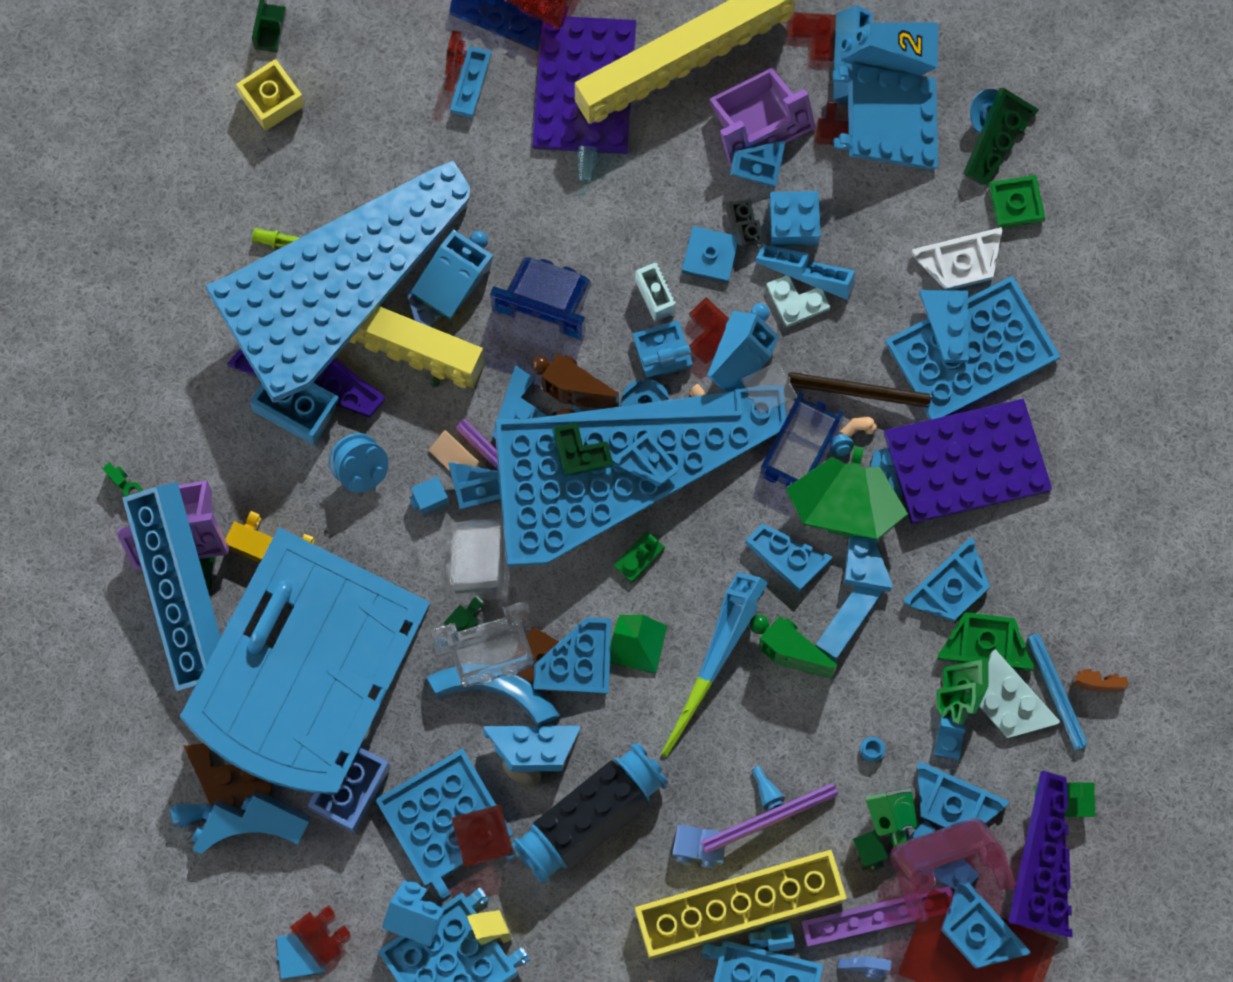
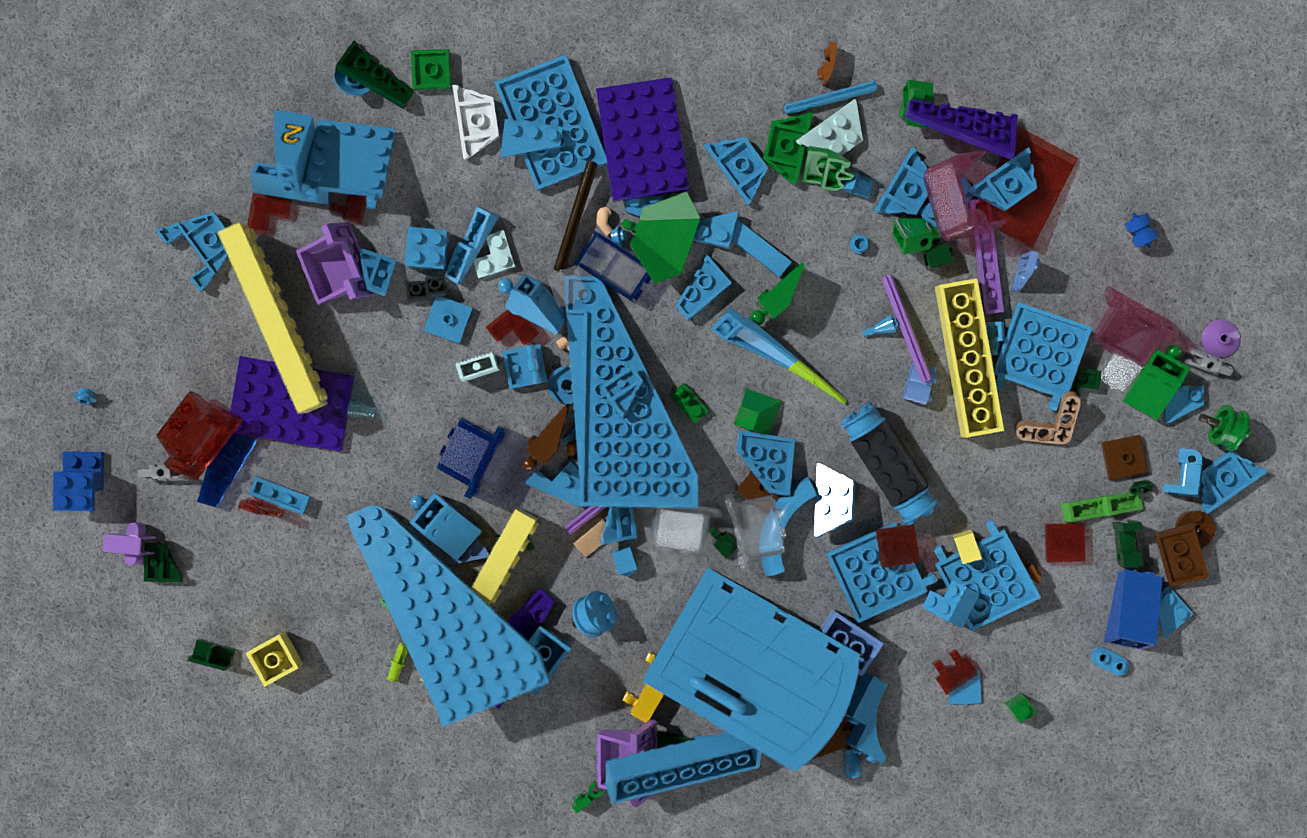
camera: 90 degrees left, 15 degrees up
(576, 457) = (616, 445): dark green plate -> none

